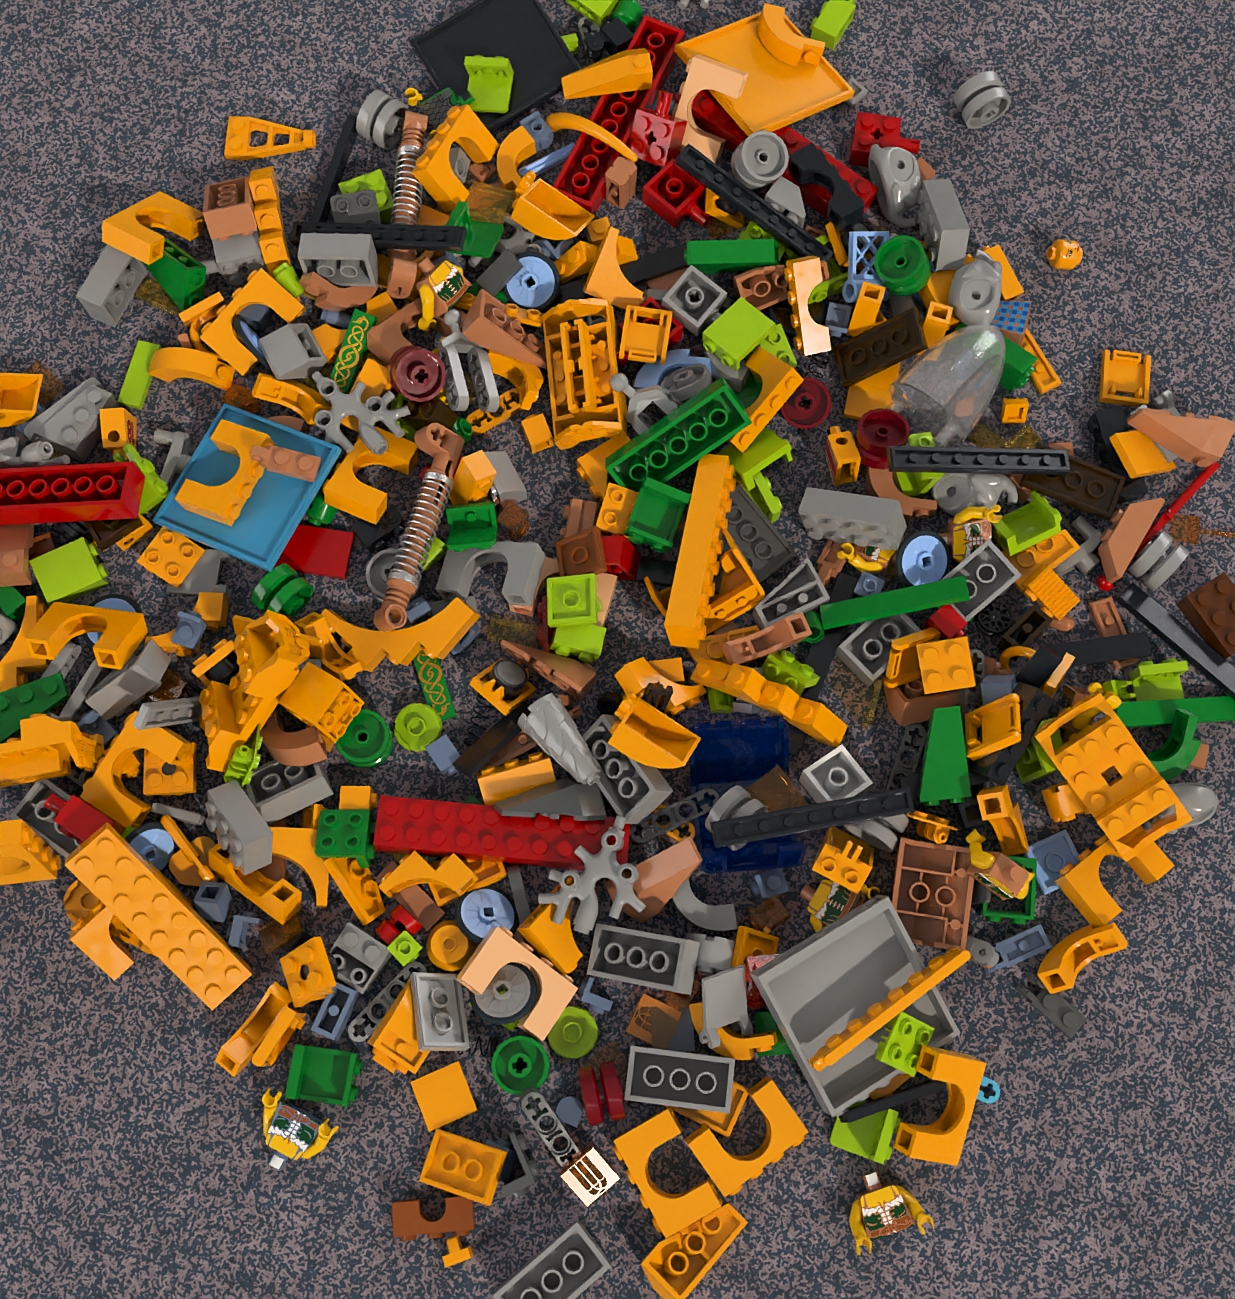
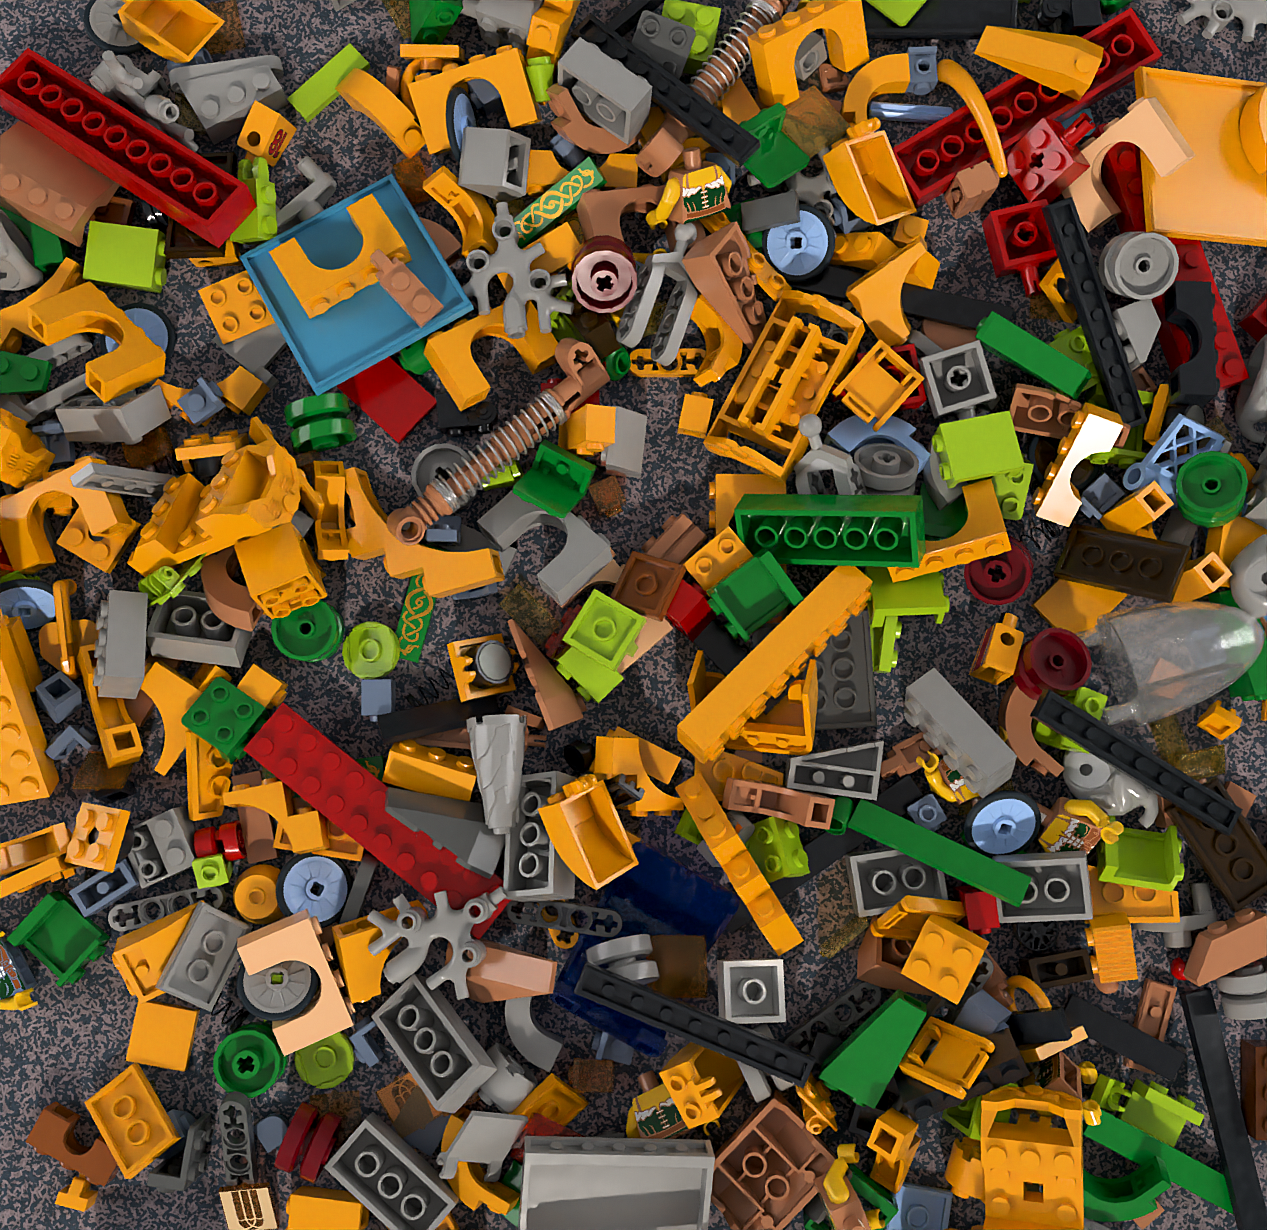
camera: 30 degrees right, 10 degrees up
(179, 814) = (79, 583): light grey tile -> none

